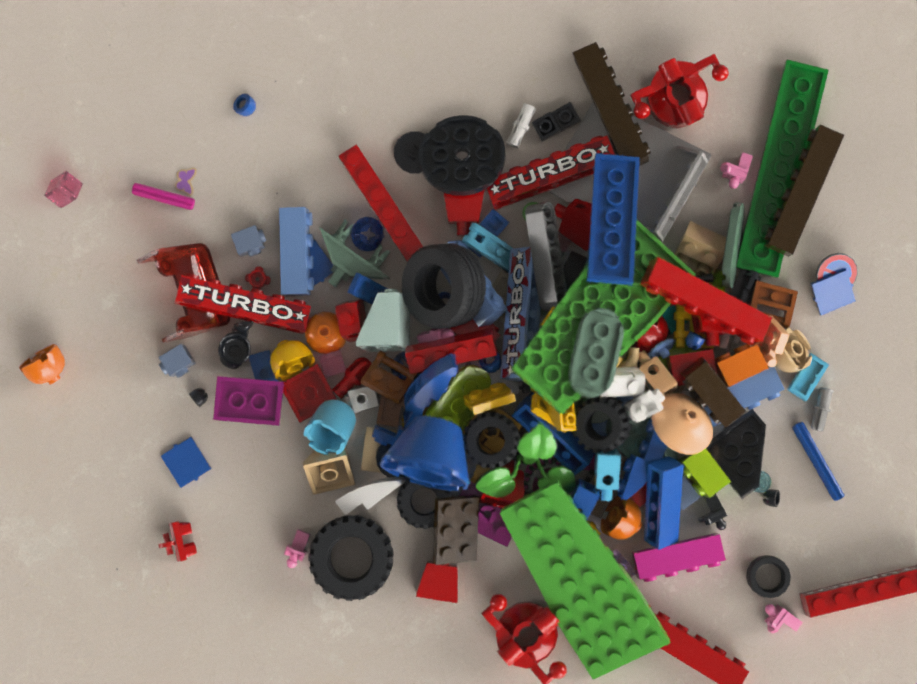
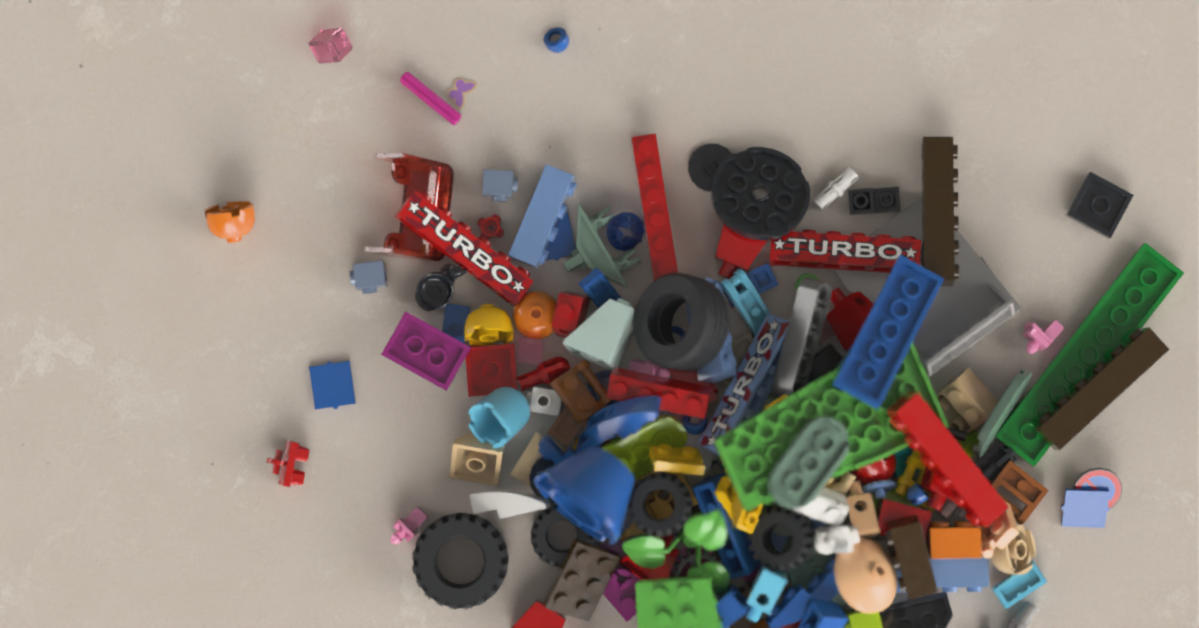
camera: 20 degrees right, 0 degrees up
(199, 396) = (376, 323): black hinge -> none
(660, 98) = (994, 222): red piece -> none
(738, 45) = (1099, 205): none -> black plate

